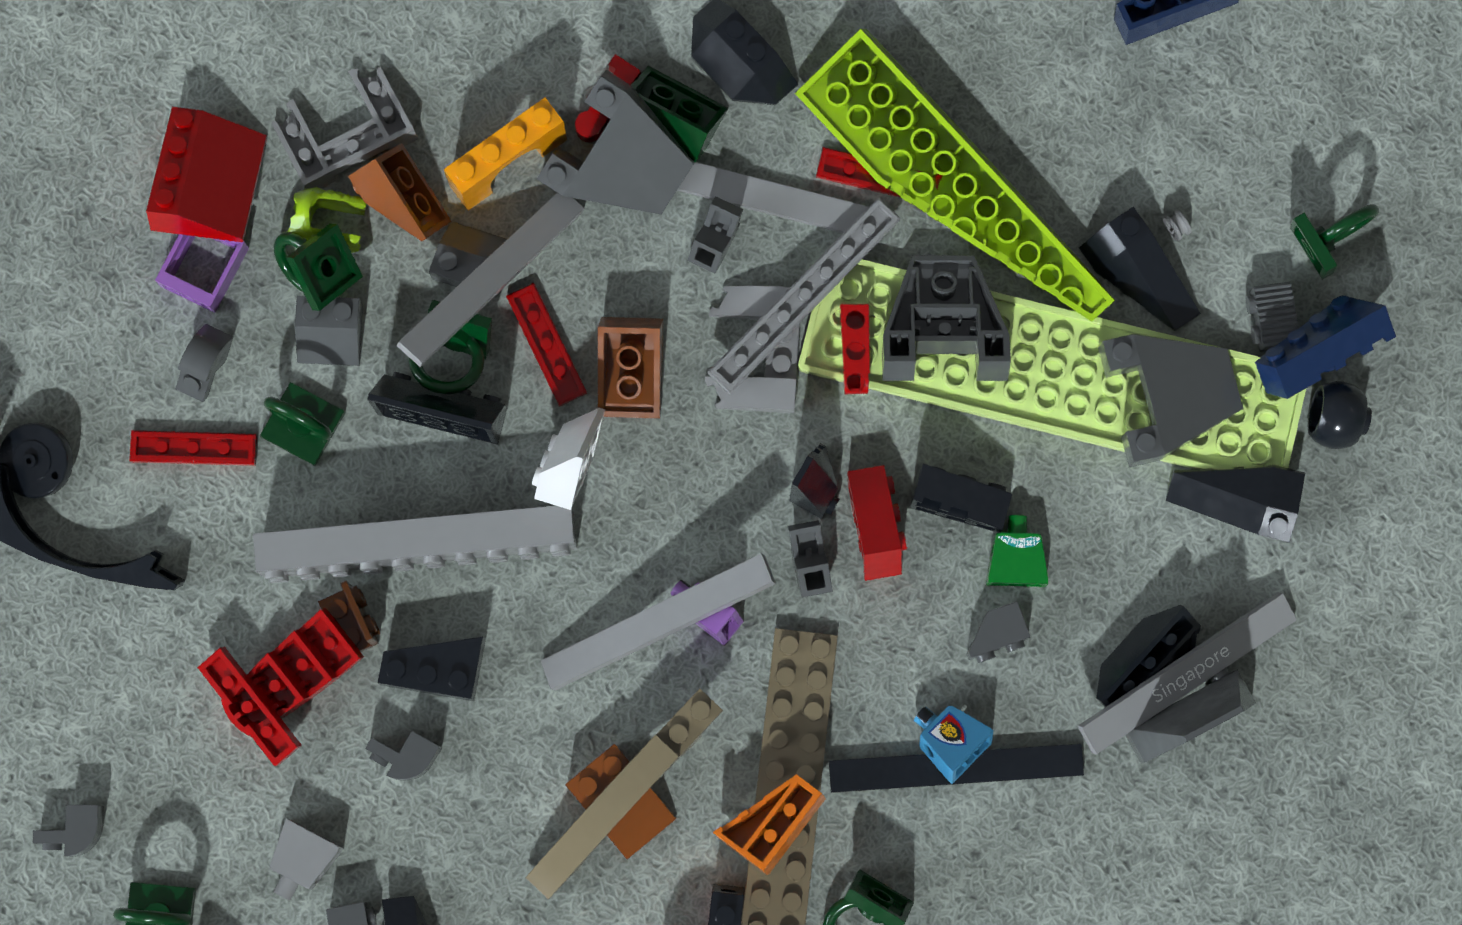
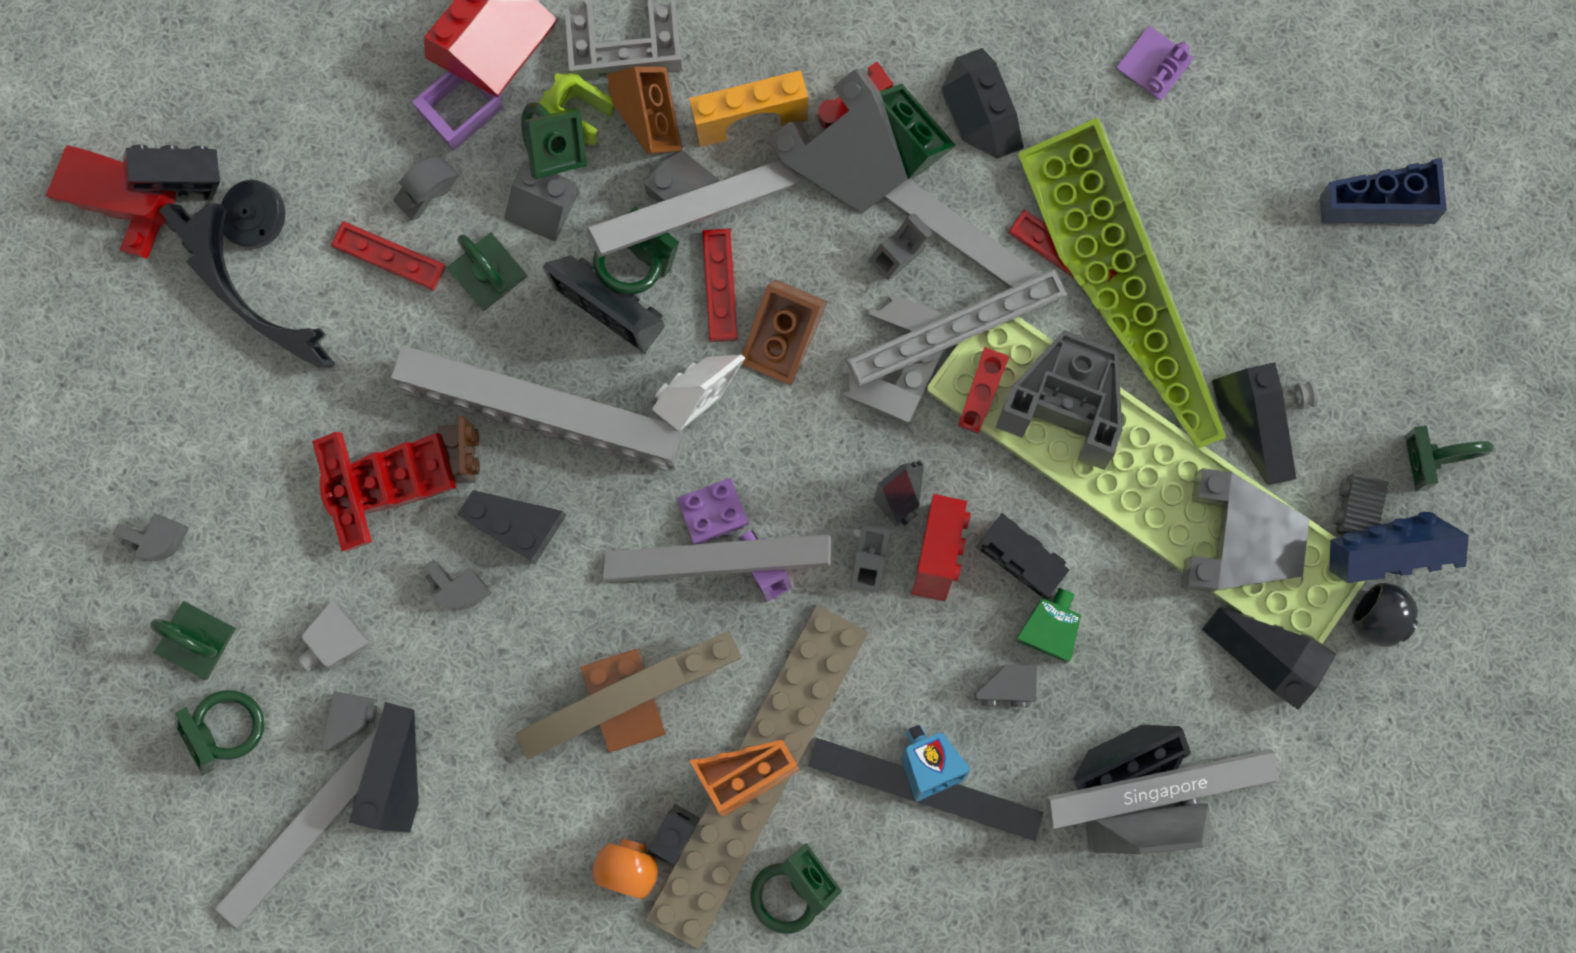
camera: 25 degrees right, 0 degrees up
(633, 576) = (712, 511): none -> medium lavender hinge

